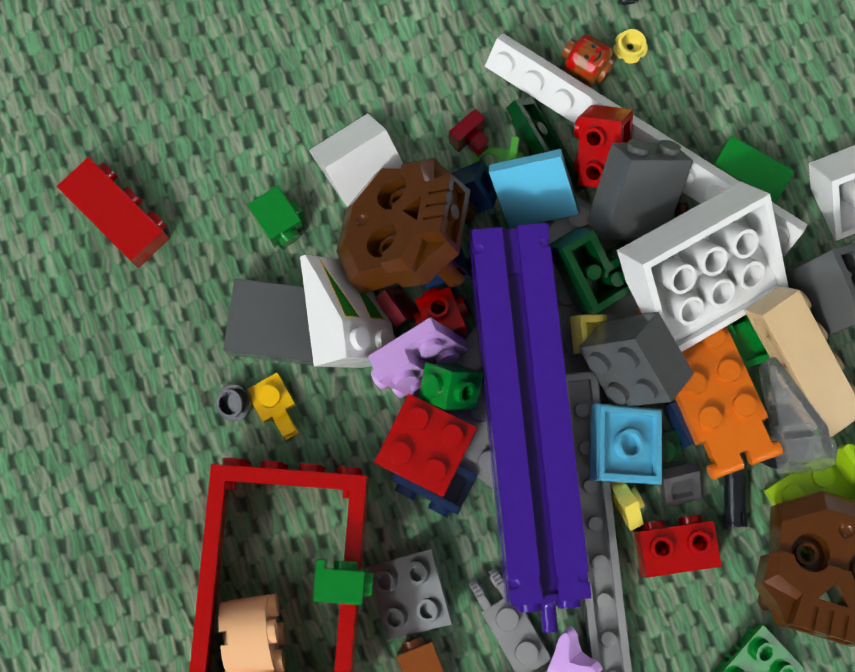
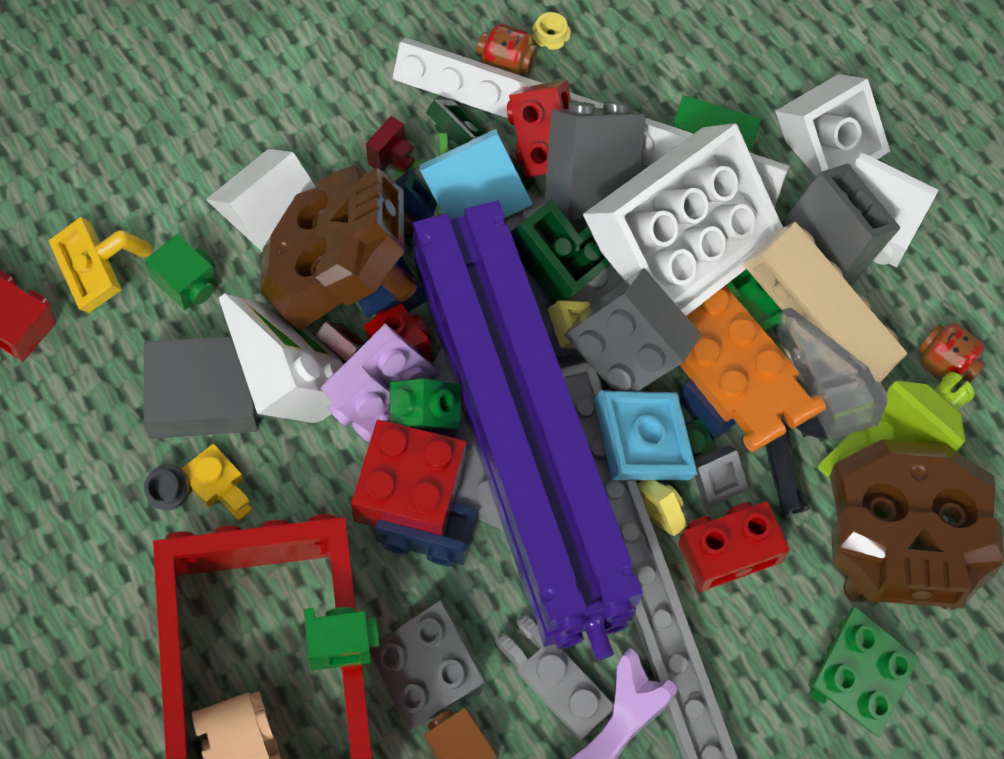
camera: 15 degrees left, 15 degrees down
(201, 192) = (87, 264): none -> yellow plate

